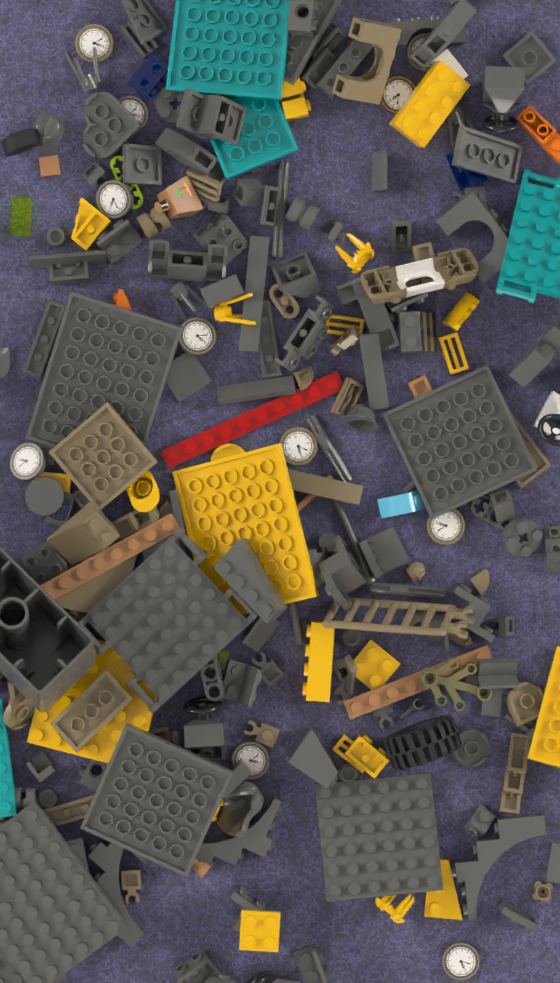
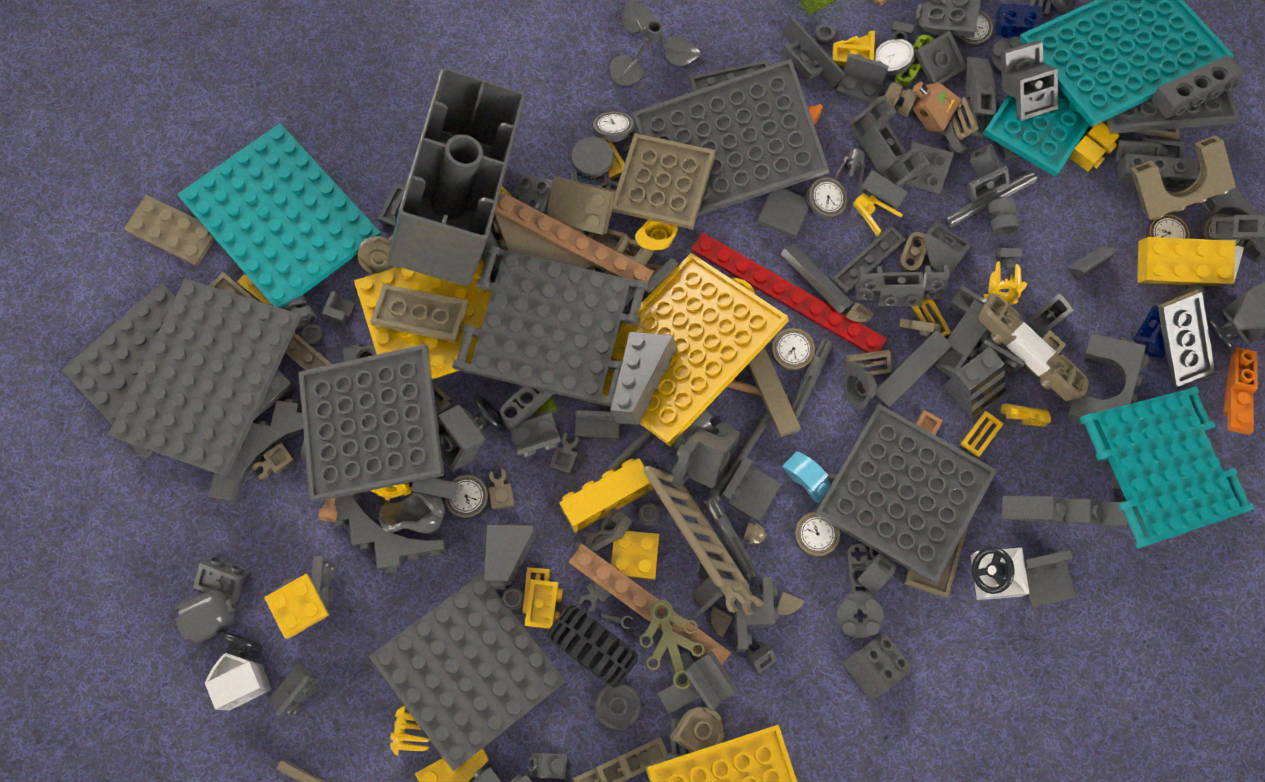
camera: 60 degrees right, 15 degrees down
(256, 285) = (893, 226): dark grey tile -> none

